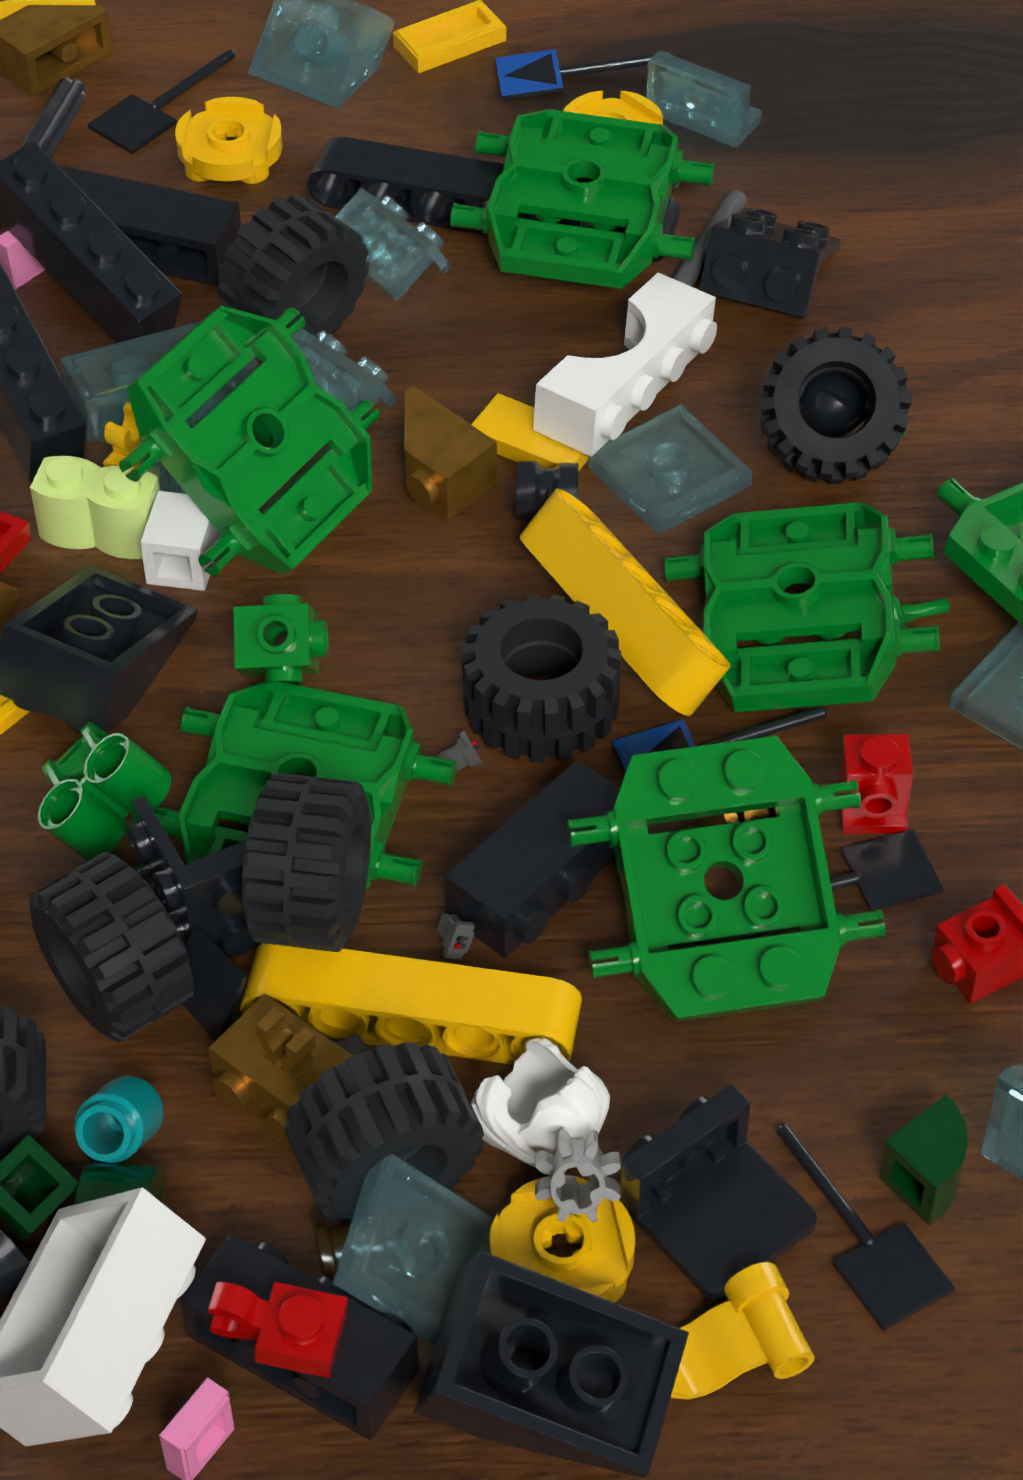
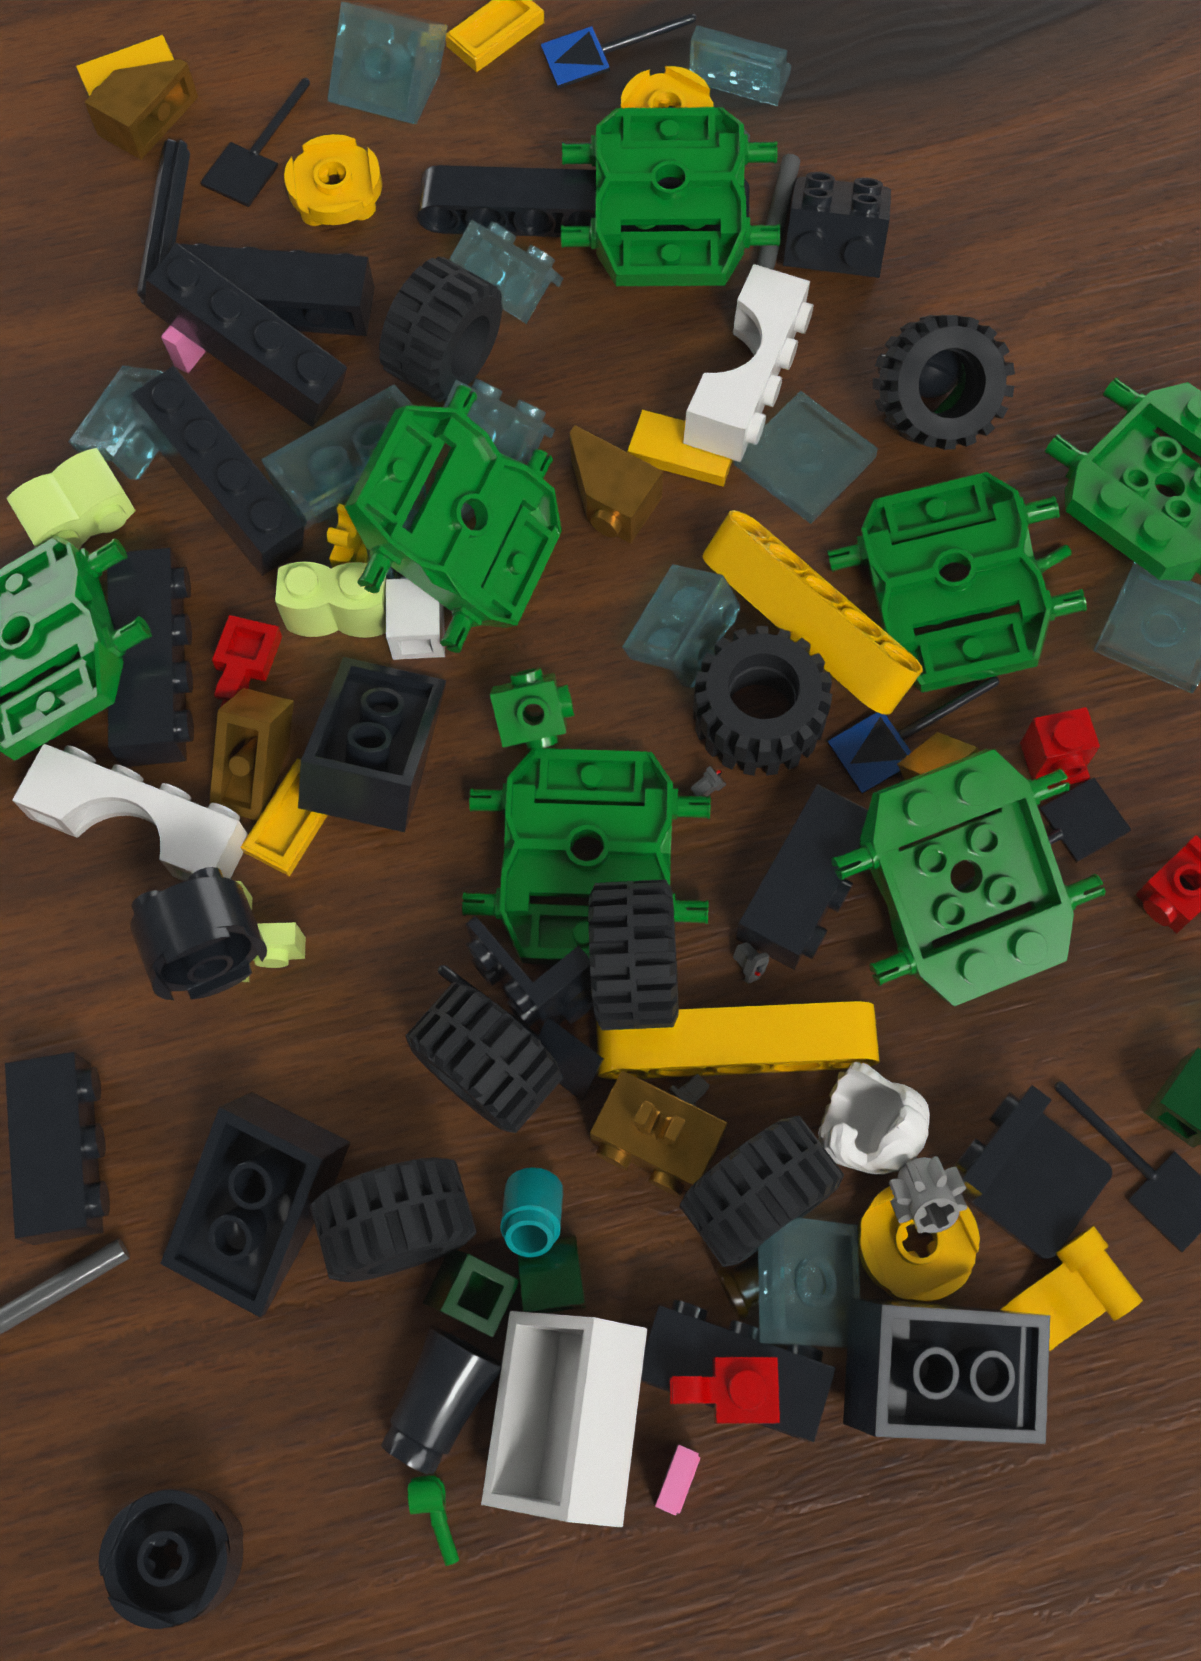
camera: 10 degrees left, 20 degrees up
(95, 790) = (420, 890): green piece -> none
(473, 585) = (683, 622): none -> clear light blue bracket
(534, 484) = (710, 504): black wheel -> none

